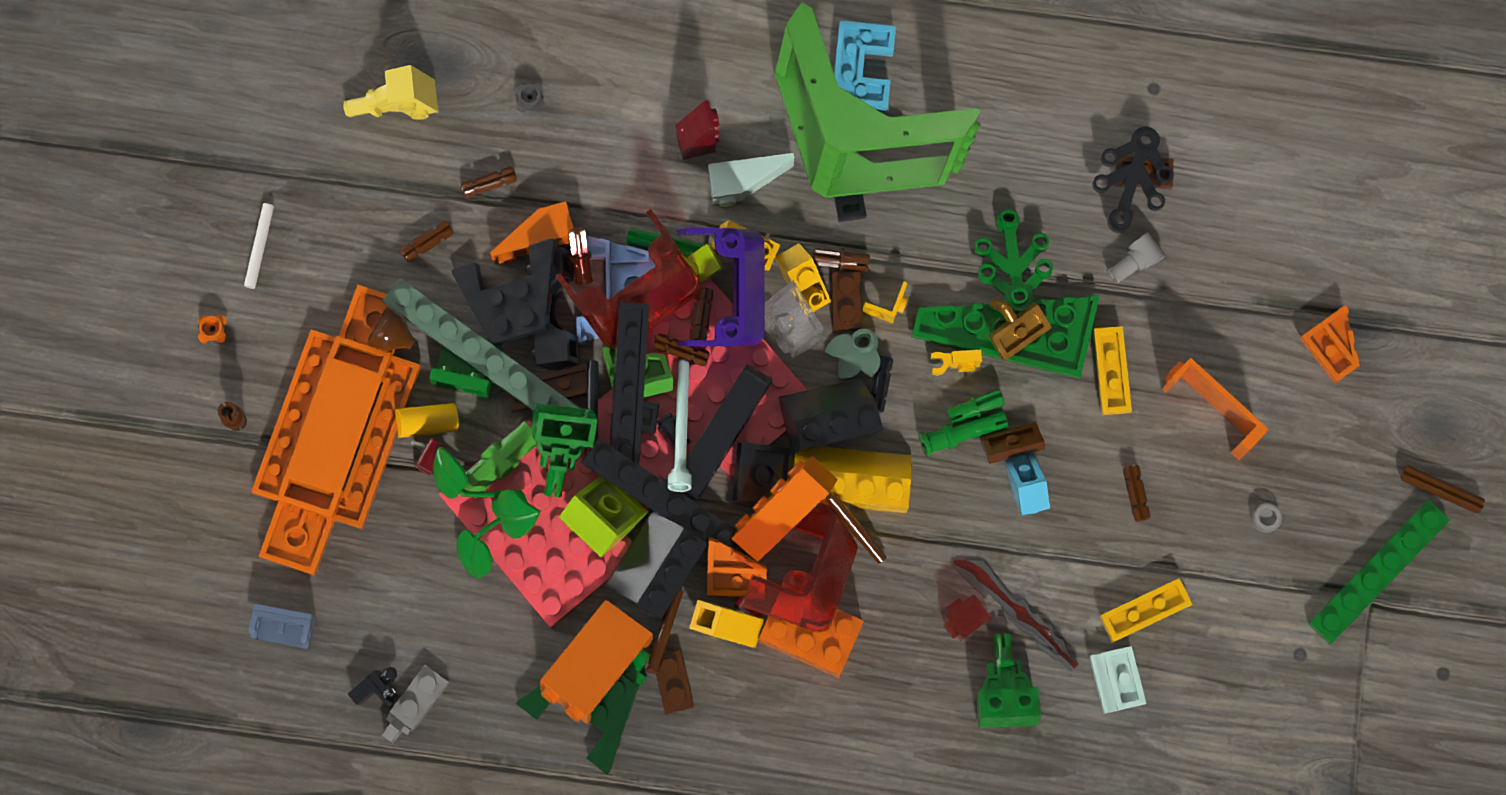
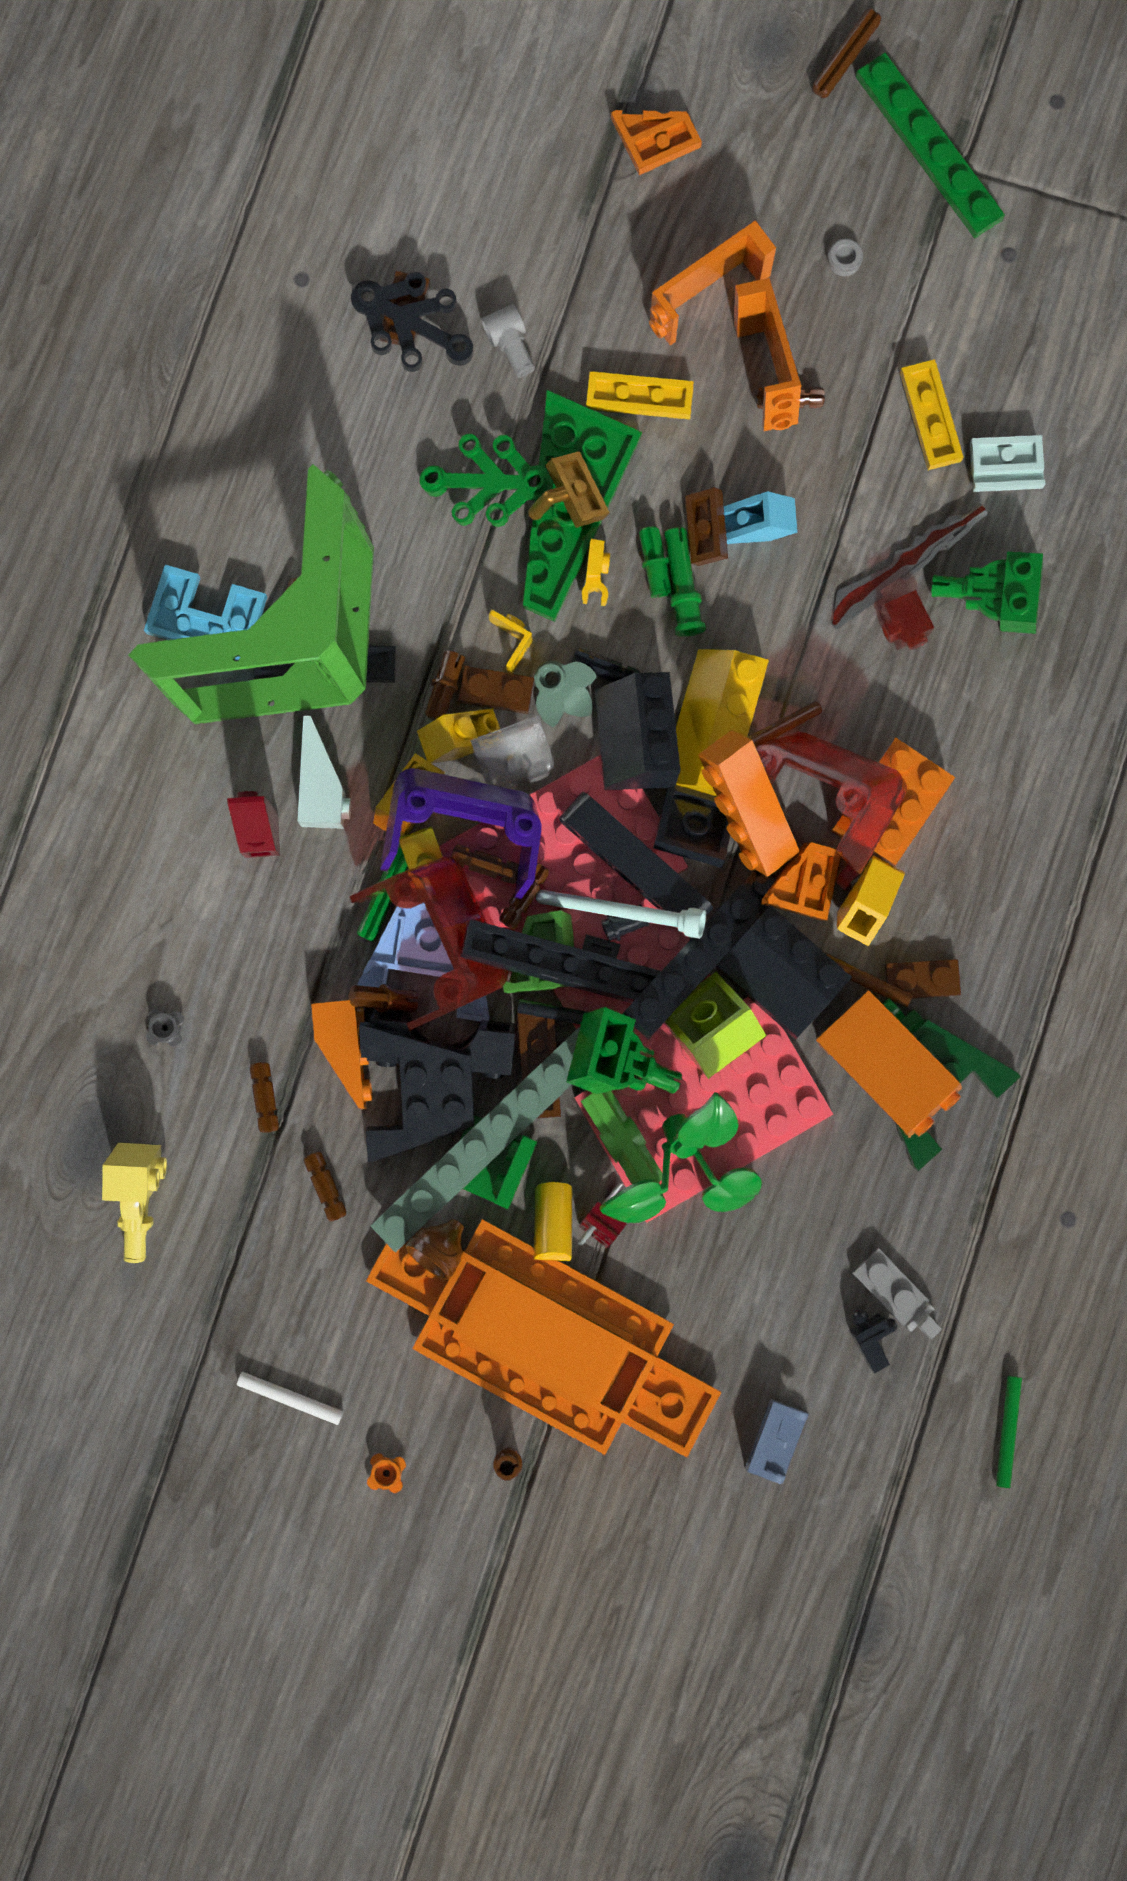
camera: 75 degrees left, 5 degrees up
(1198, 448) = (756, 313): none -> orange panel

